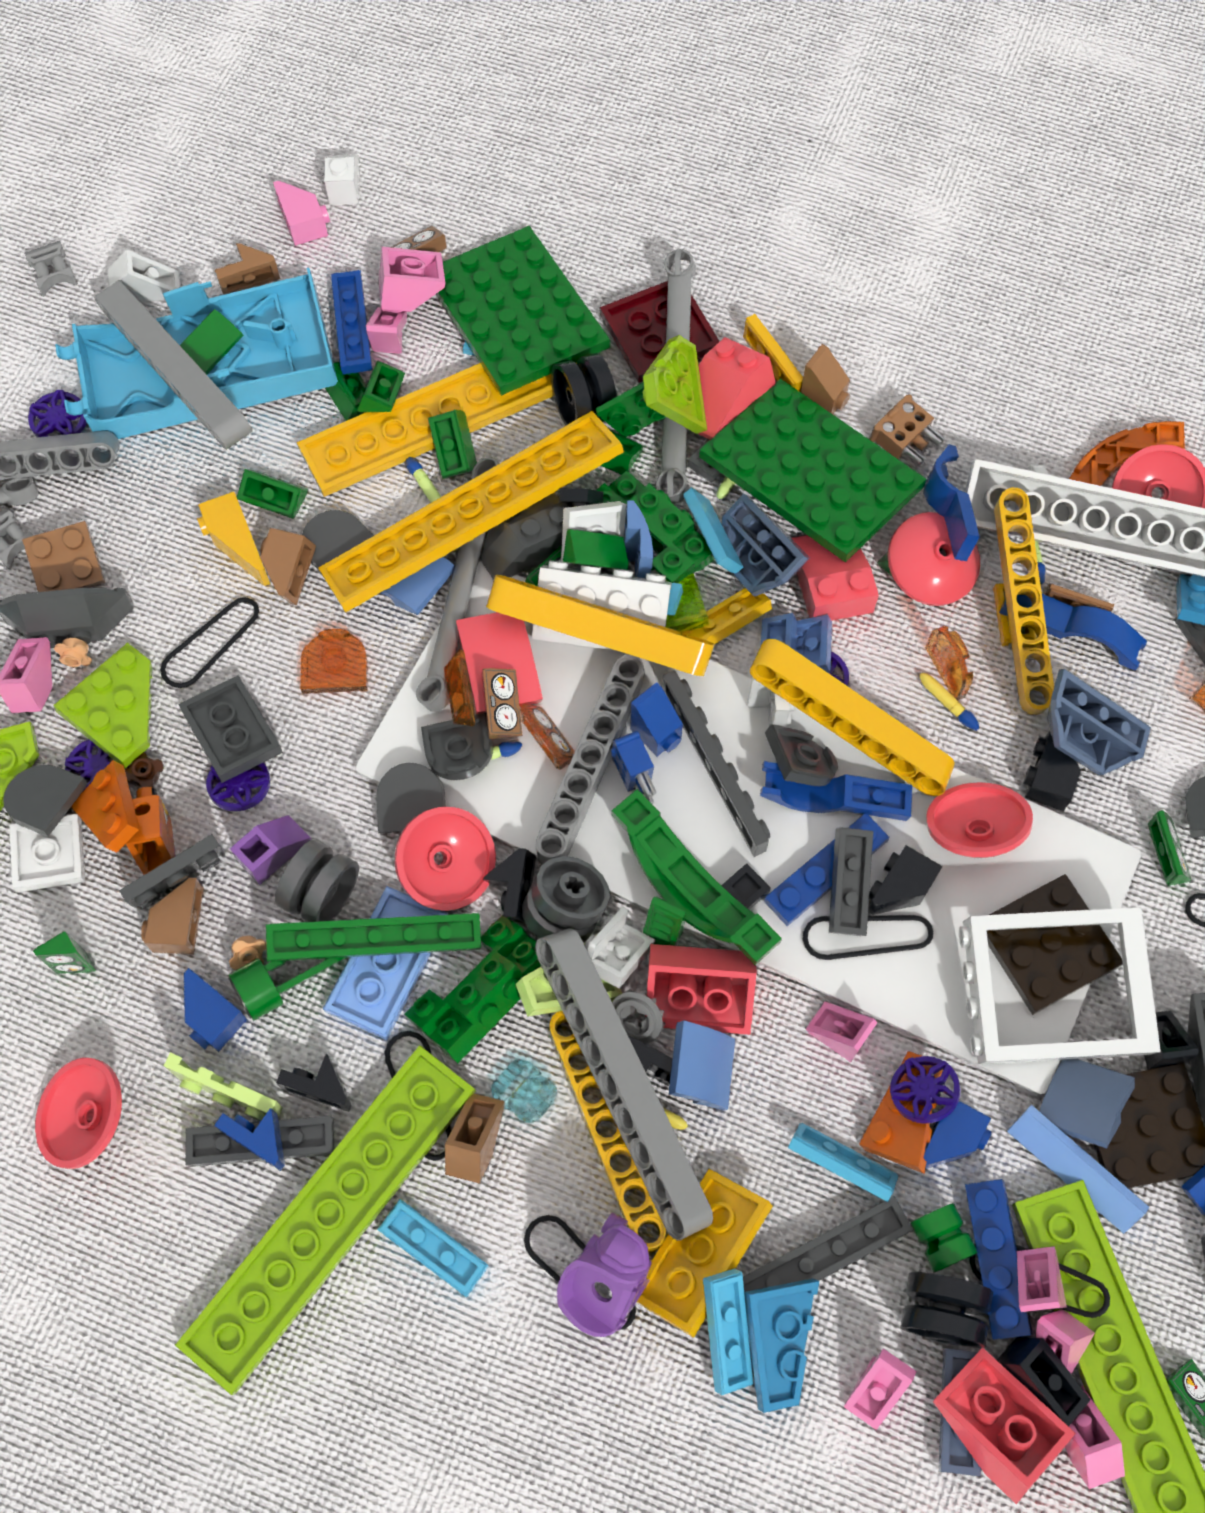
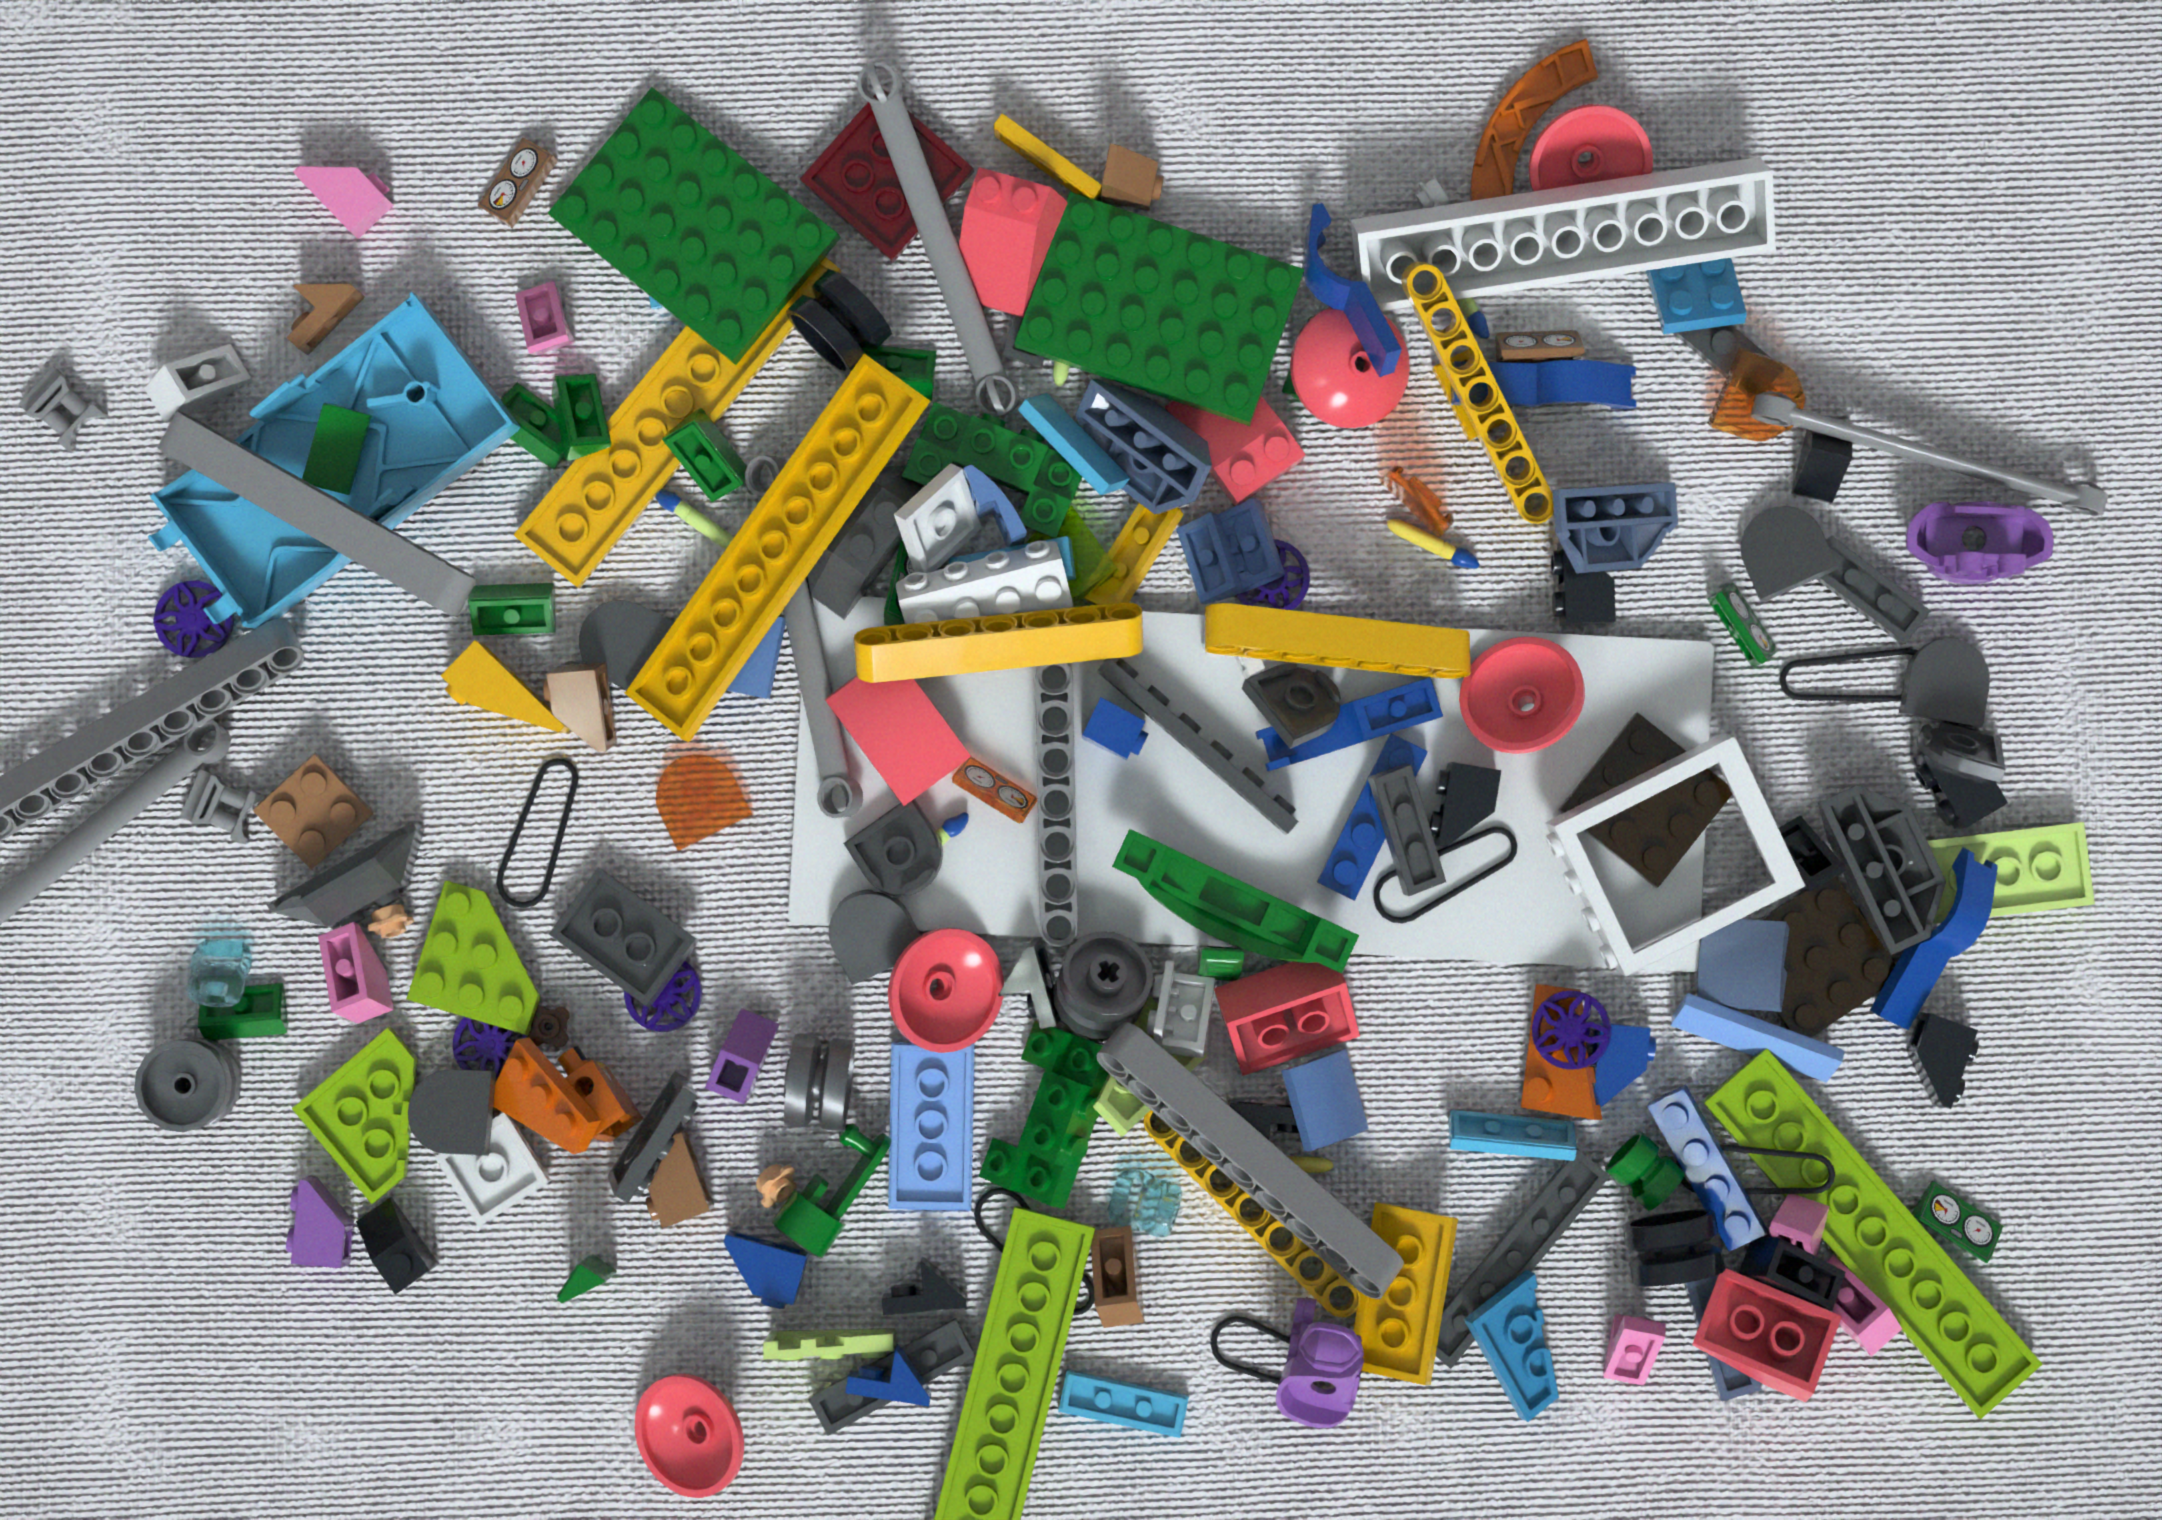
camera: 25 degrees left, 20 degrees up
(342, 179) = (371, 111): white slope -> none
(351, 322) = (494, 332): blue plate -> none
(372, 937) = (911, 1116): green plate -> none
(409, 278) = (542, 244): bright pink slope -> none
(459, 690) = (872, 789): clear orange slope -> none
(501, 703) = (929, 786): slope -> none
(580, 497) = (903, 479): black plate -> none
(595, 549) = (951, 543): green slope -> none
(628, 412) = (914, 305): green bracket -> none
(634, 764) = (1112, 794): blue piece -> none
(650, 1026) = (1230, 1084): light grey gear -> none
(674, 385) = (953, 278): lime plate -> none
(728, 1331) = (1462, 1362): medium azure tile -> none
(747, 886) = (1292, 881): black plate -> none
(841, 1029) = (1456, 992): bright pink slope -> none
(904, 428) = (1234, 197): medium nougat piece -> none
(1039, 1280) = (1758, 1181): bright pink slope -> none

